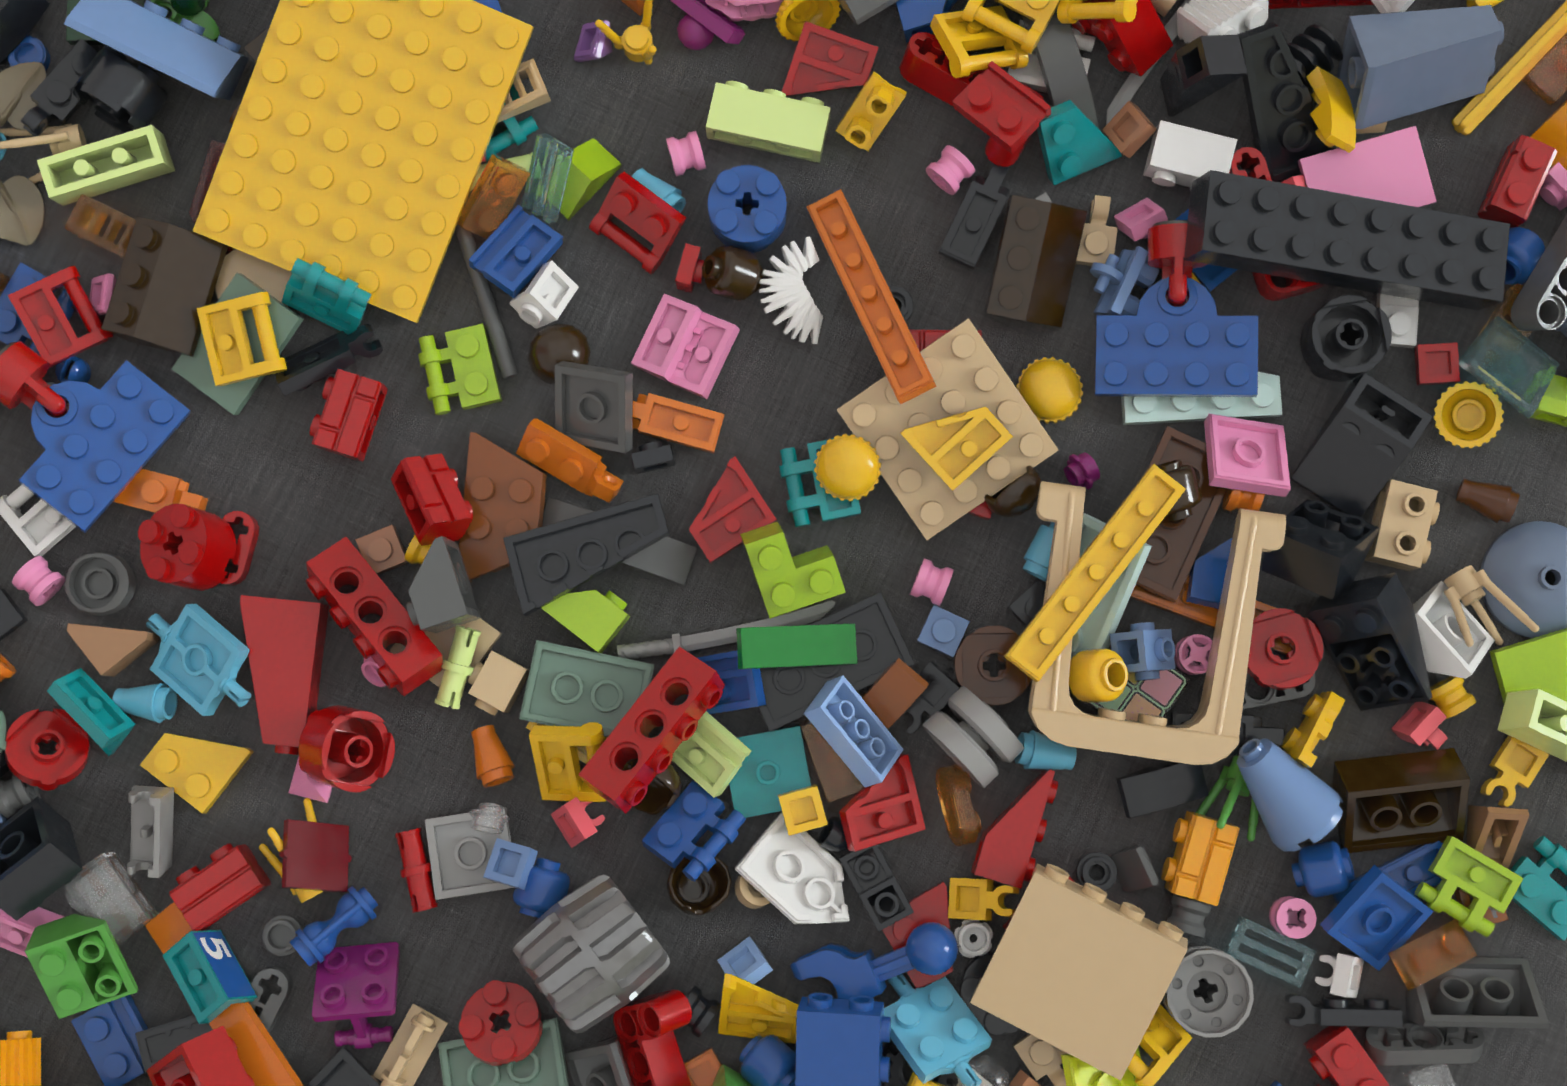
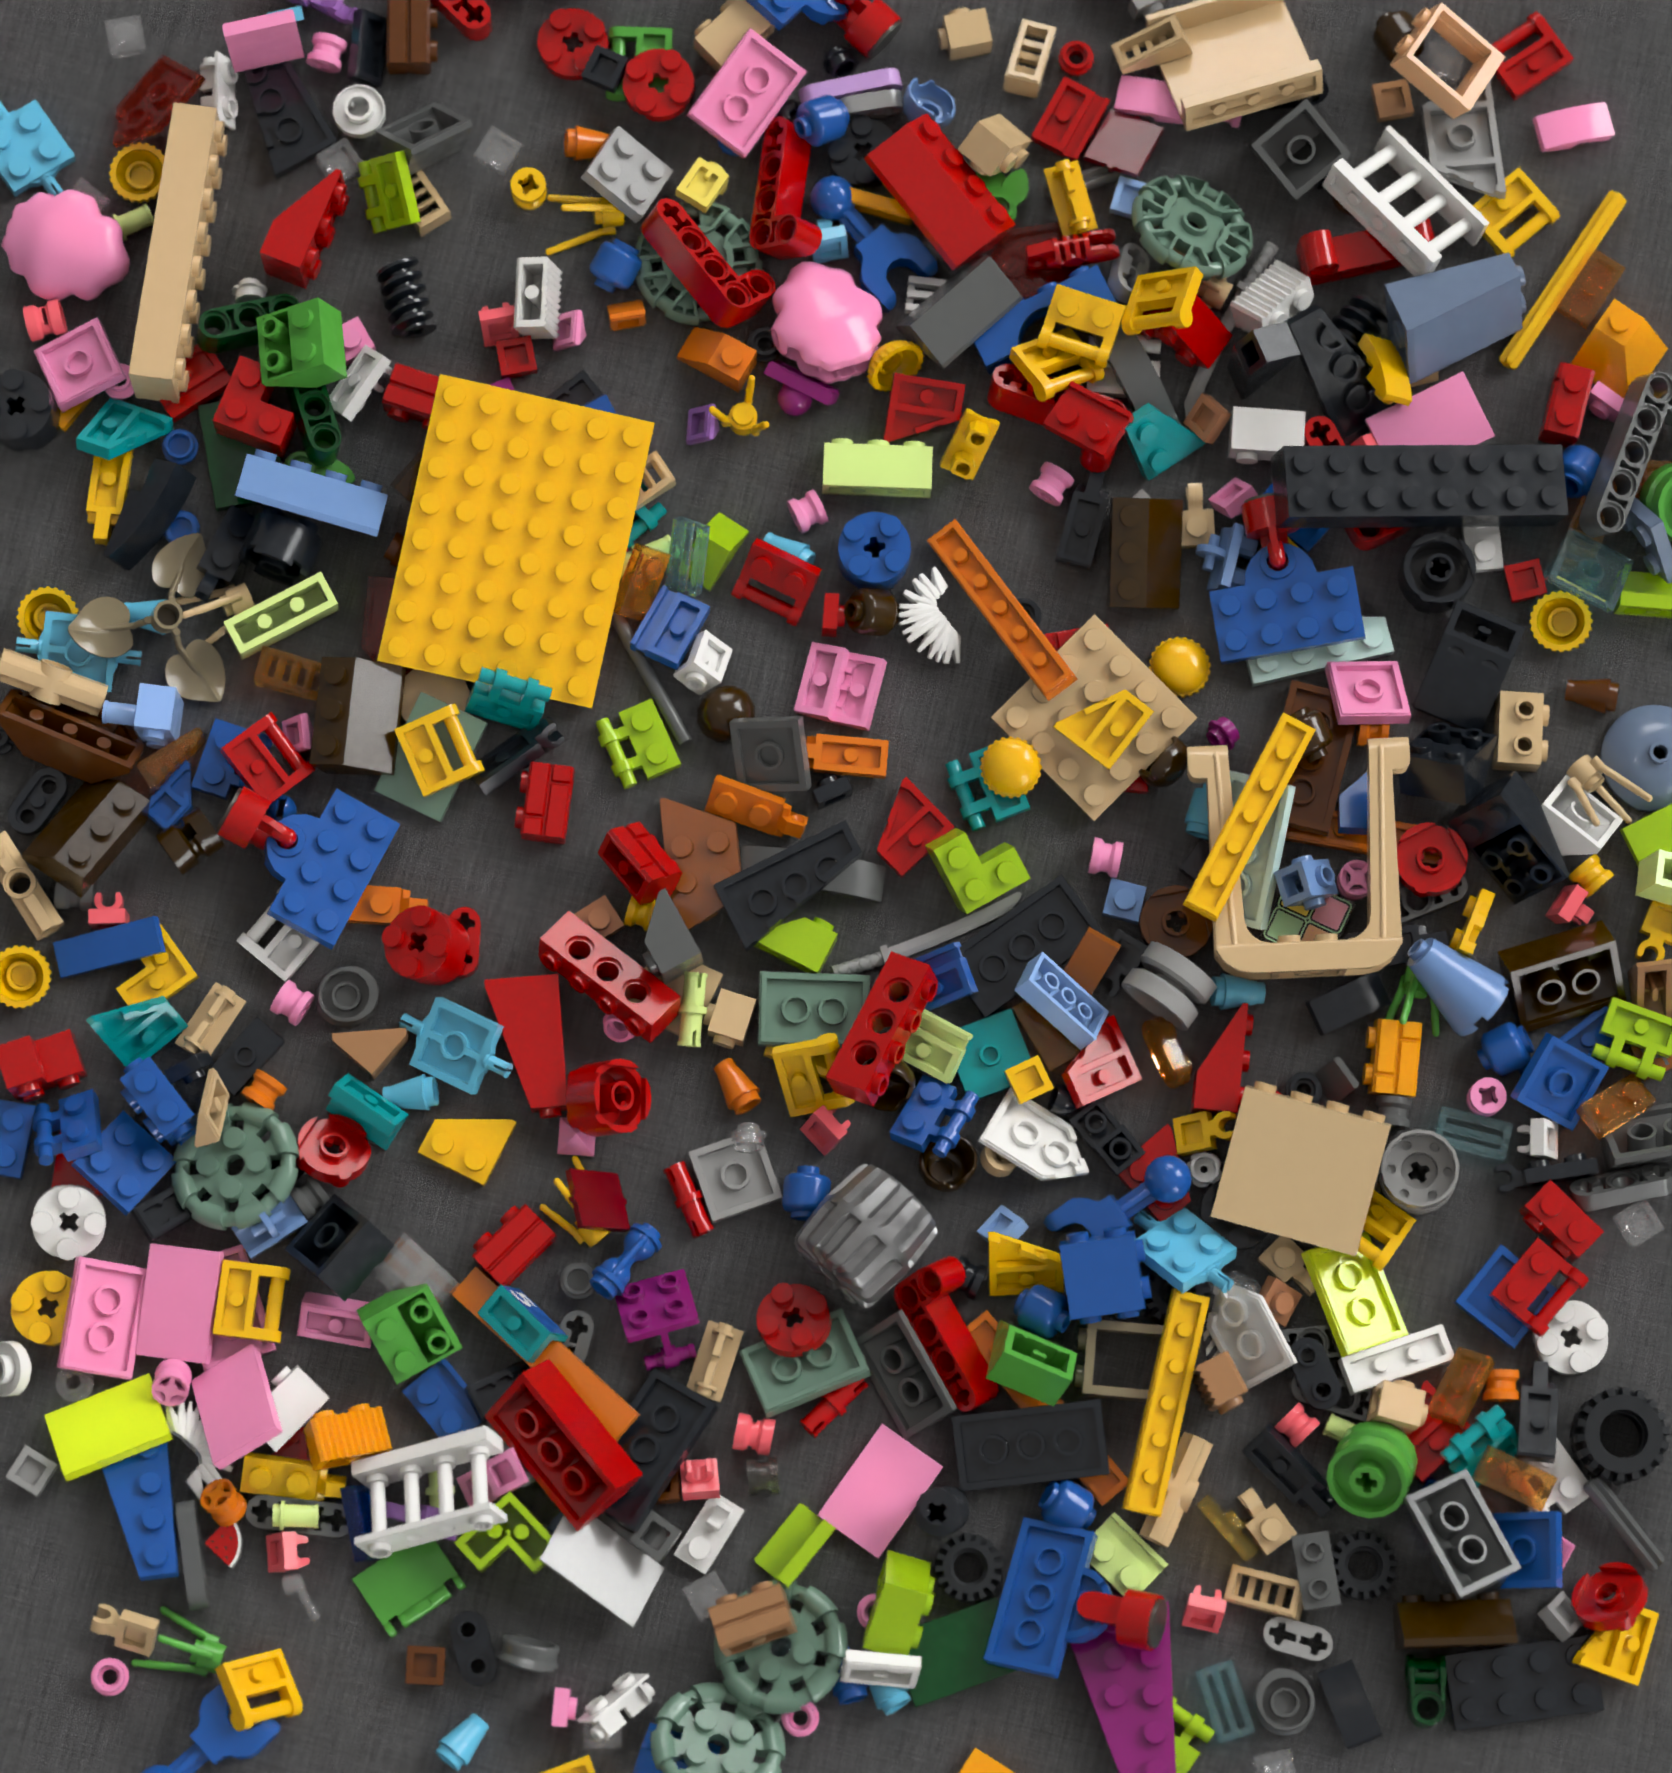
camera: 15 degrees left, 5 degrees down
(151, 829) = (439, 1206): light grey hinge -> none
(510, 864) = (776, 1173): medium blue plate -> none
(796, 646) = (996, 933): green tile -> none
(1097, 675) = (1269, 909): yellow head -> none

